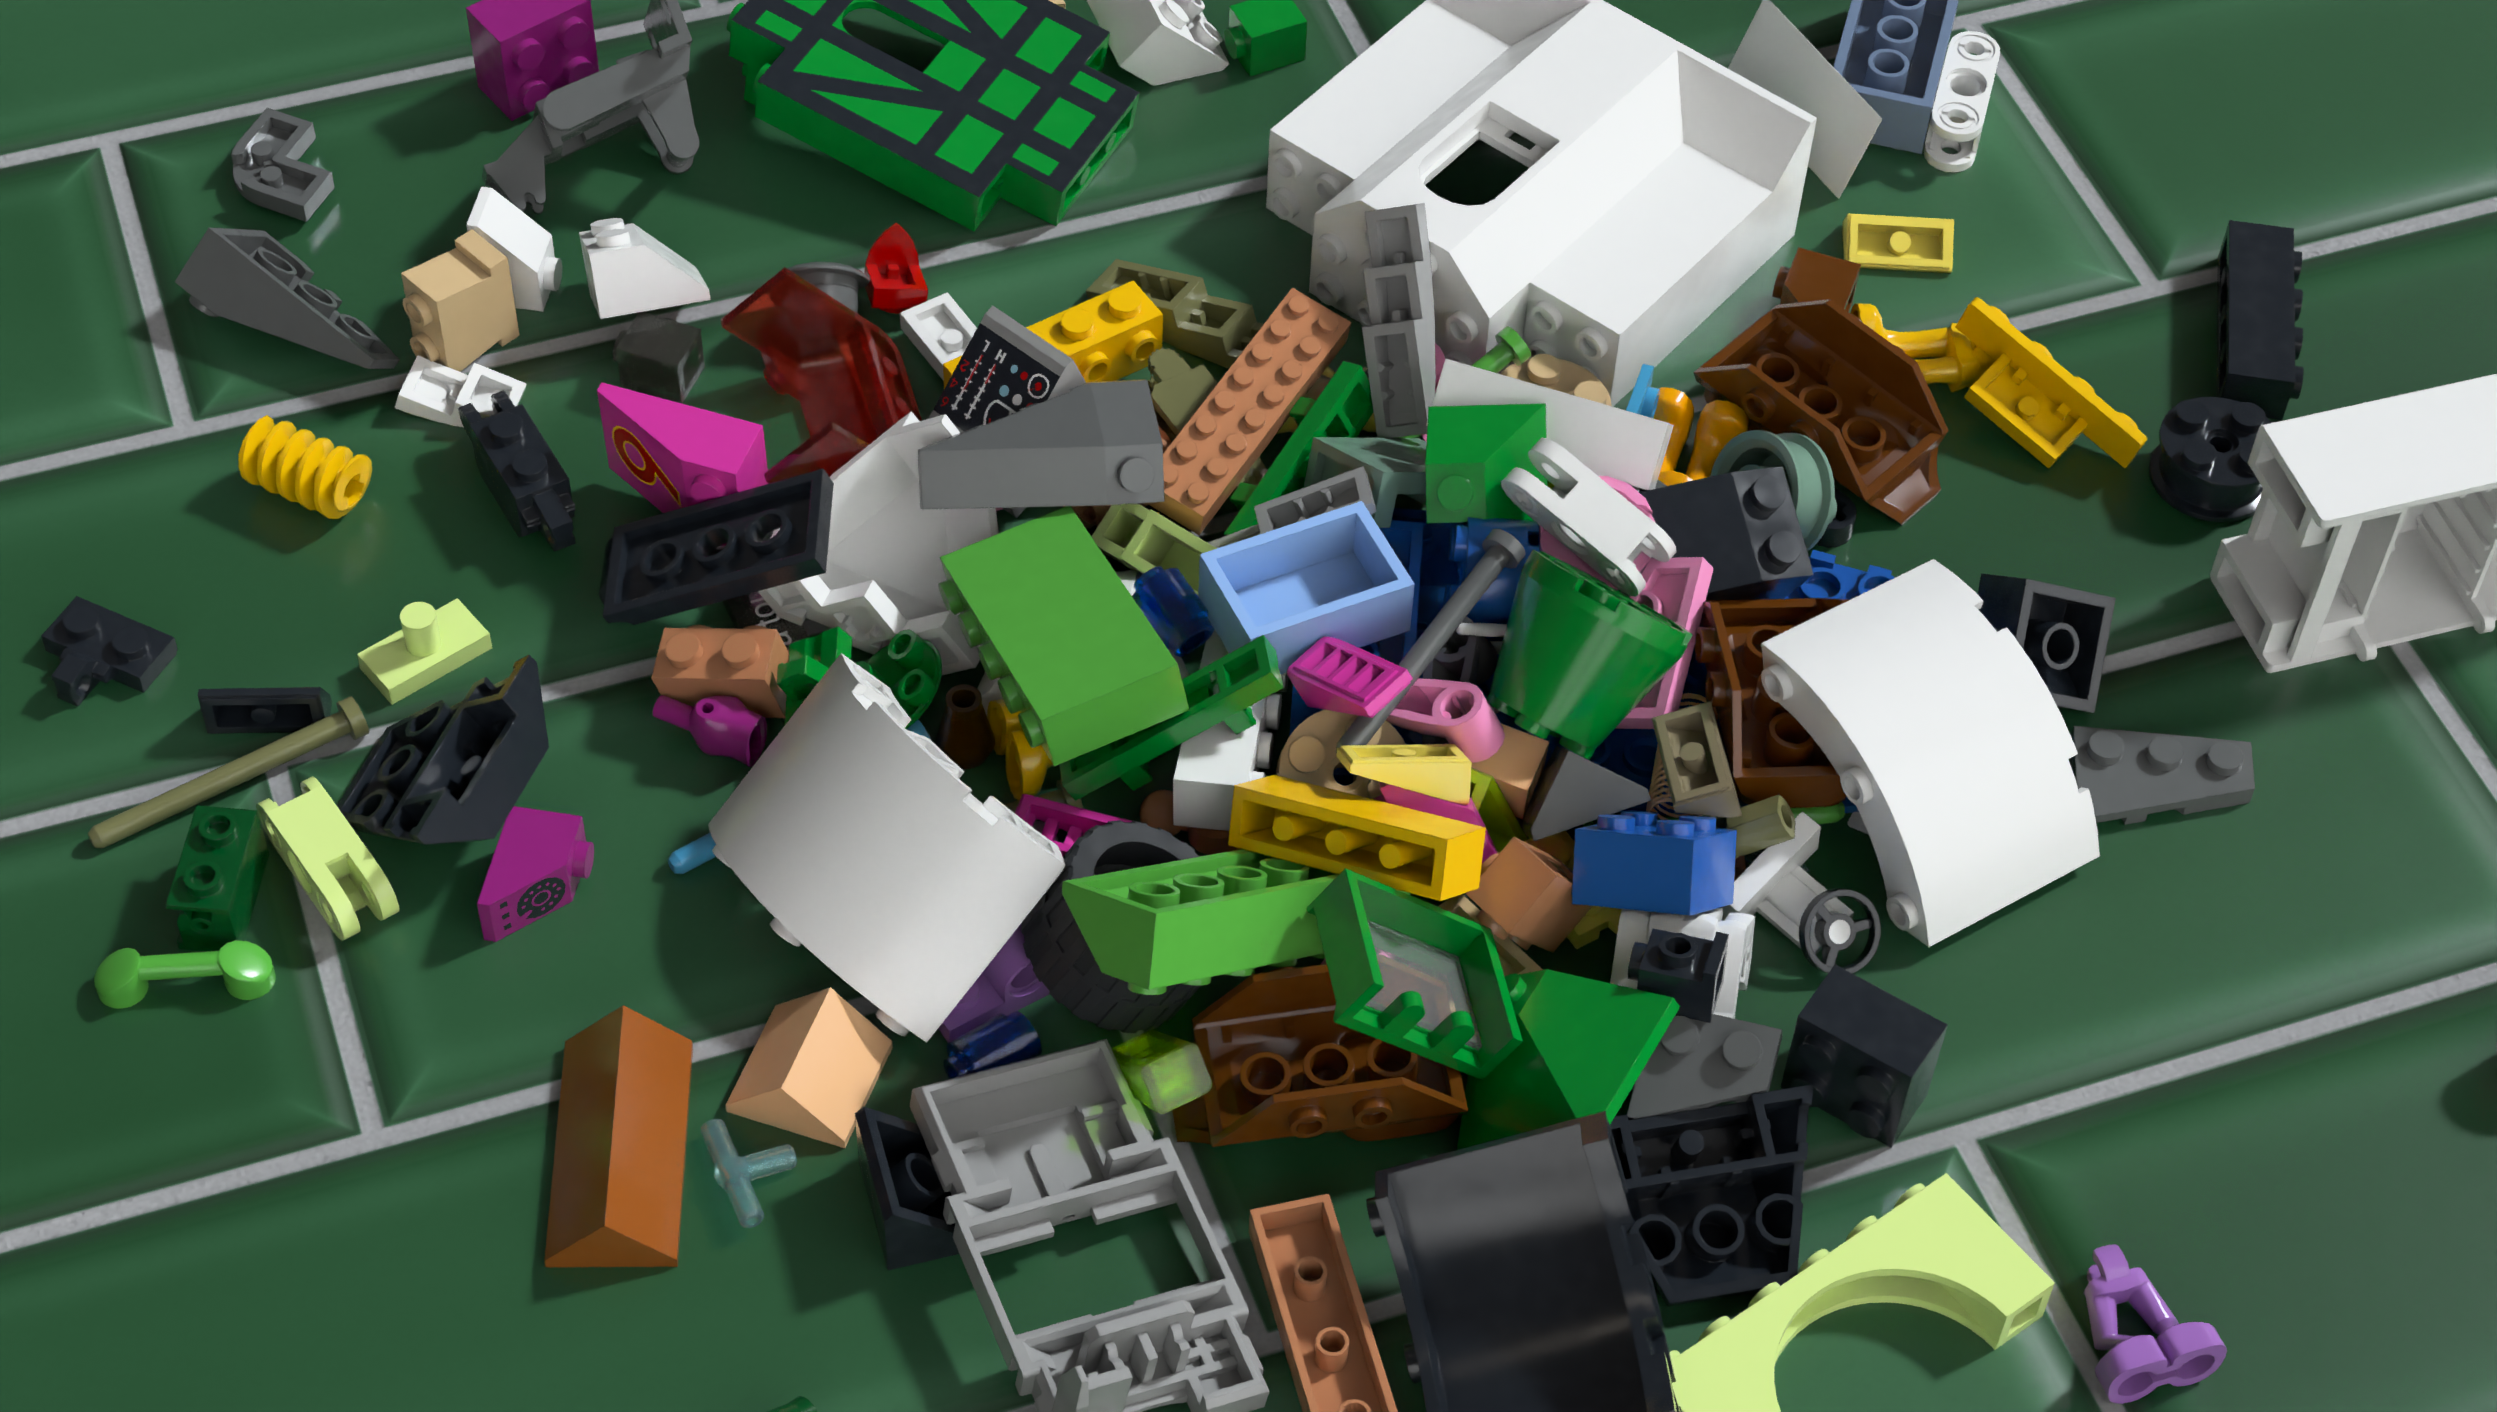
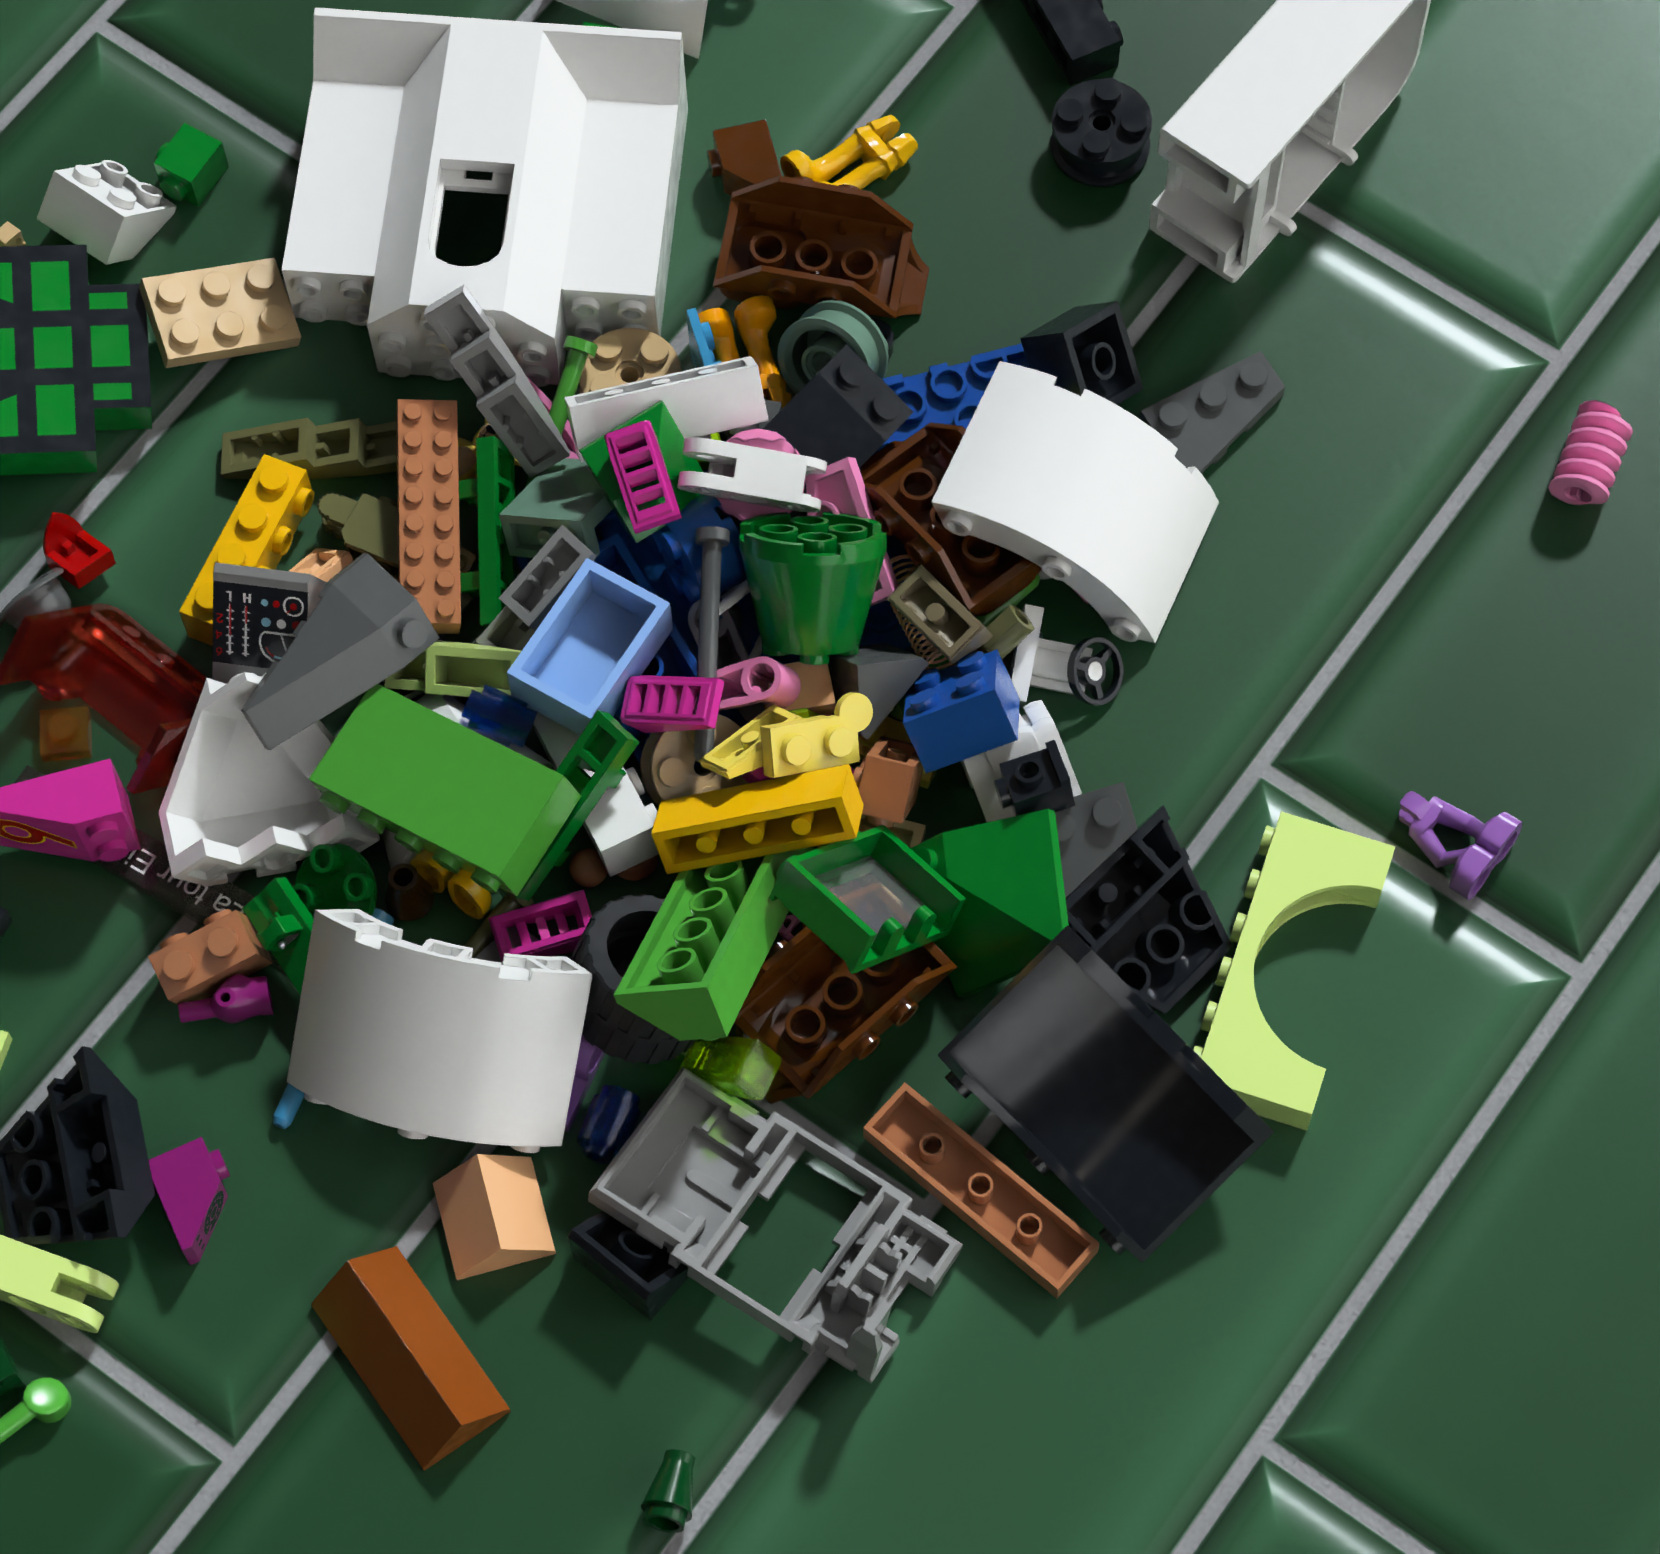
camera: 30 degrees left, 15 degrees up
(666, 562) = (103, 906): black hinge -> none
(736, 1172) = (502, 1322): clear light blue piece -> none
(775, 415) = (65, 733): none -> clear orange plate
(938, 330) = (150, 579): white plate -> none
(1191, 156) = (219, 312): none -> tan plate
(1471, 794) = (816, 740): none -> light yellow hinge
(1474, 415) = (633, 447): none -> dark pink slope
(1864, 1055) = (1176, 759): black brick -> none
(1899, 242) = (768, 76): light yellow slope -> none
(2038, 397) = (953, 158): yellow bracket -> none

